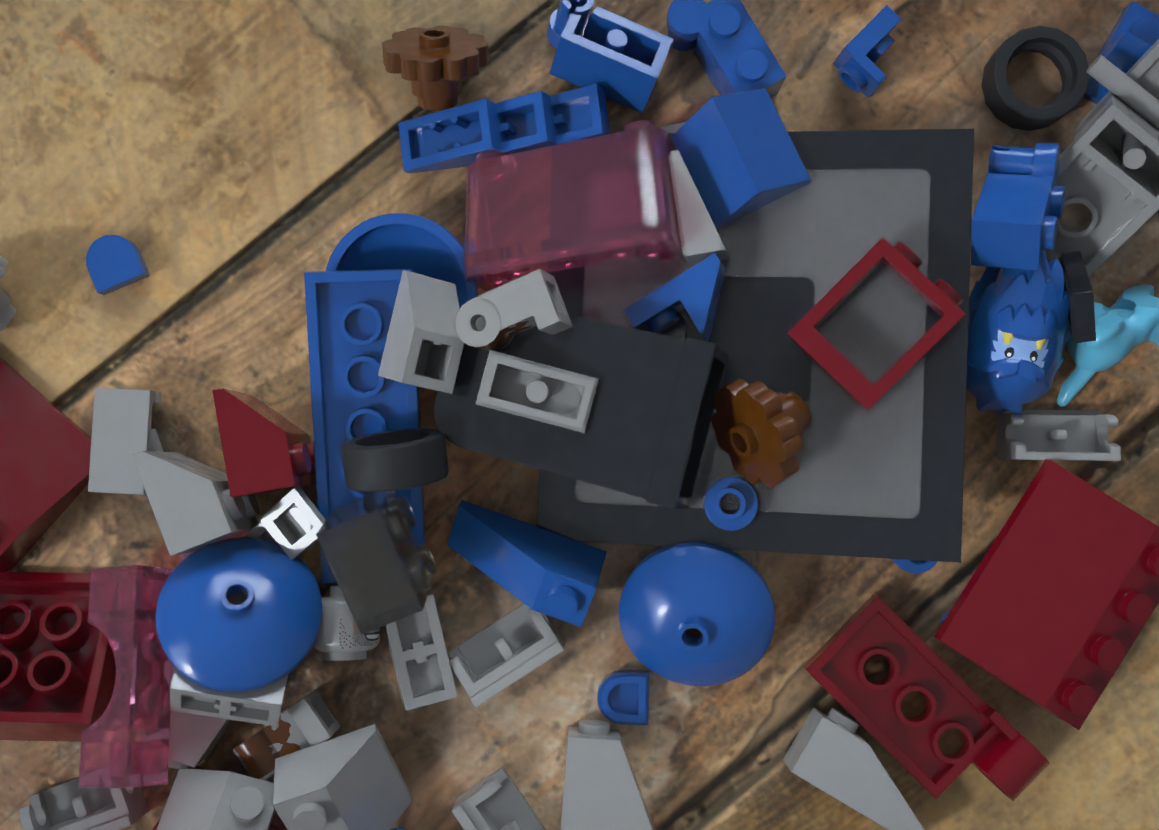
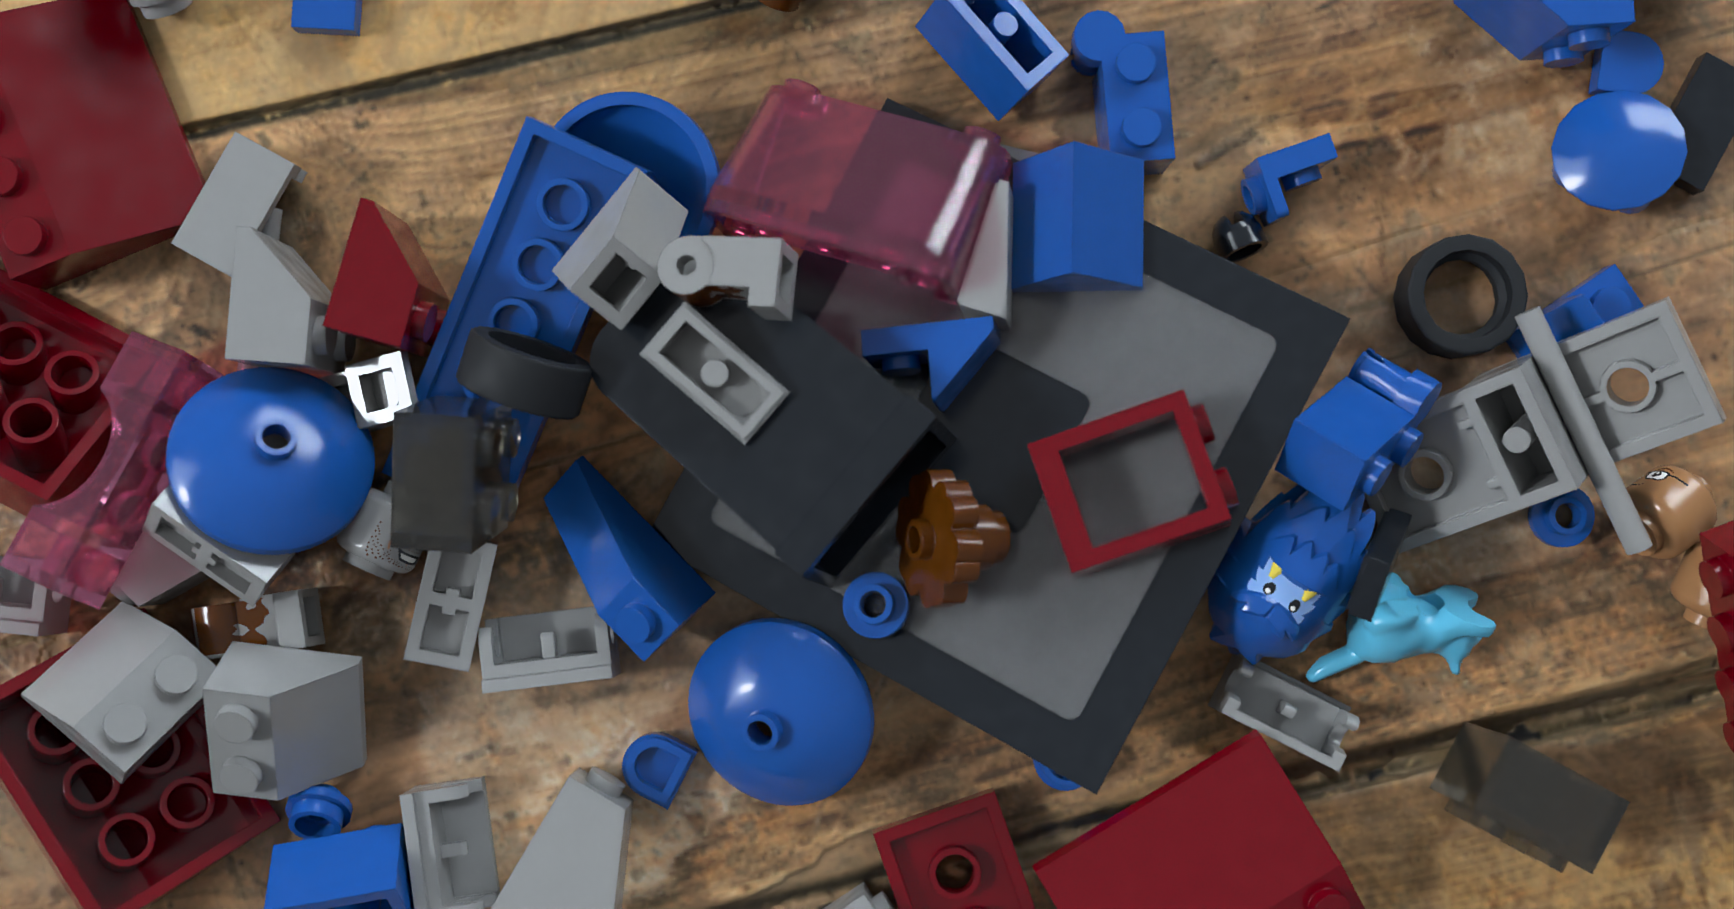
camera: 20 degrees right, 0 degrees up
(511, 126) = (841, 64): blue slope -> none
(855, 112) = (1239, 239): none -> black hinge

